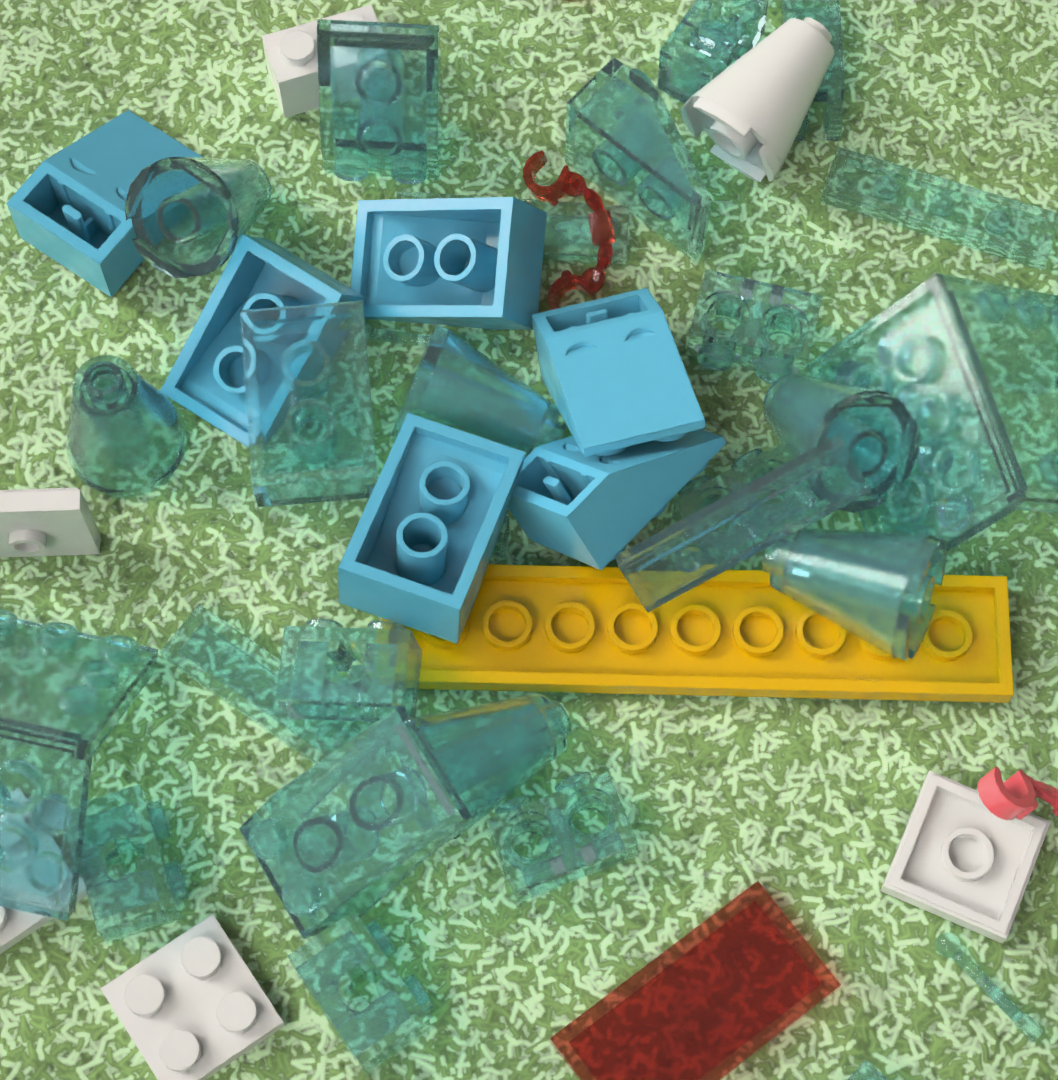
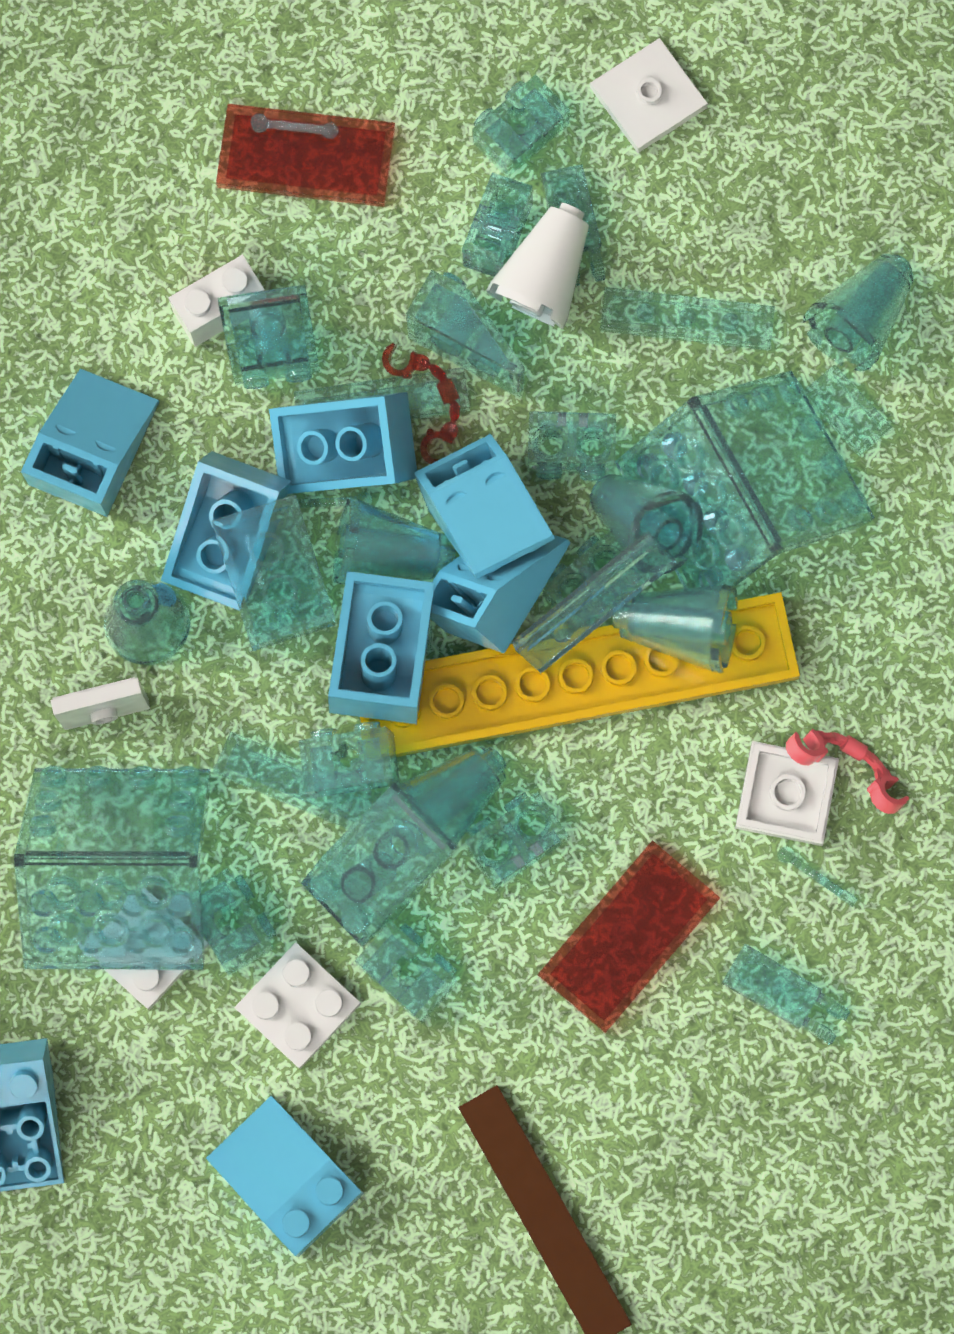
camera: 10 degrees left, 10 degrees up
(195, 211) = (160, 449): clear light blue cone -> none

